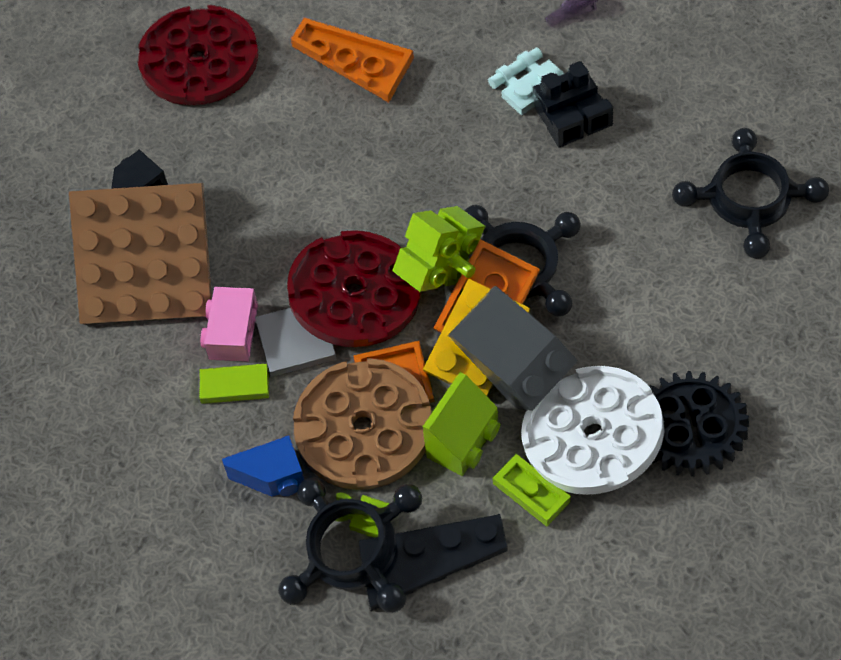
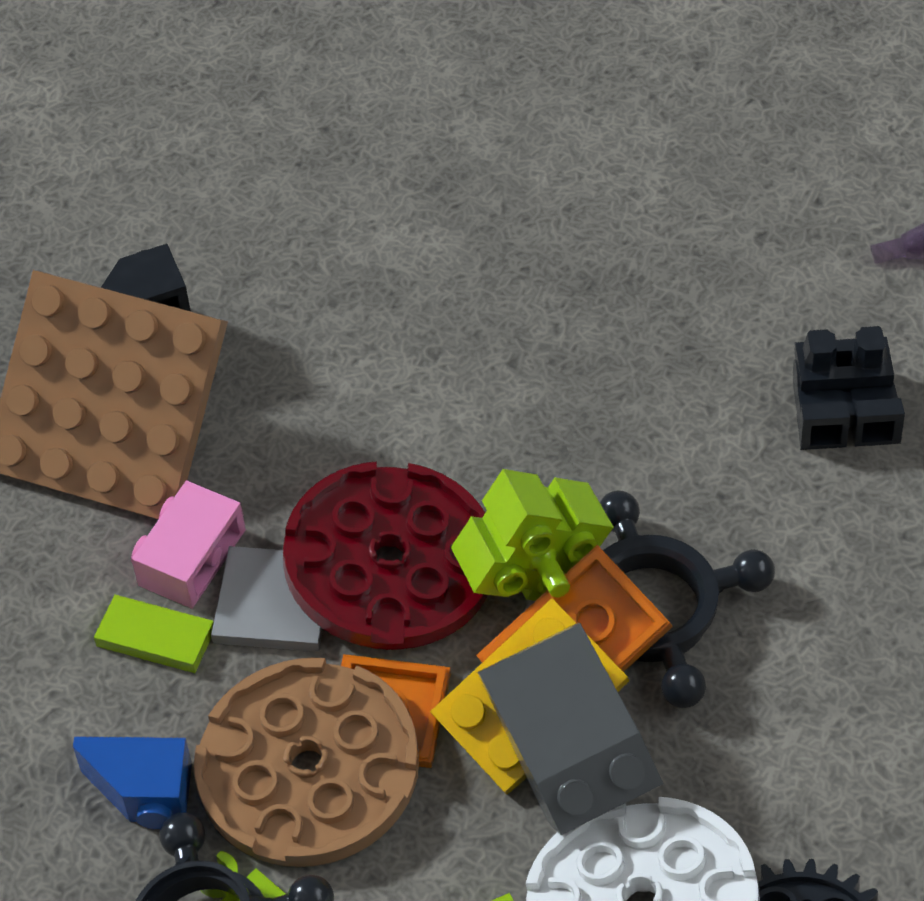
camera: 20 degrees right, 5 degrees down
(172, 39) = (300, 169): dark red plate -> none
(359, 58) = (561, 217): orange wing -> none
(460, 426) = (442, 817): lime slope -> none
(520, 92) = (776, 344): light aqua plate -> none

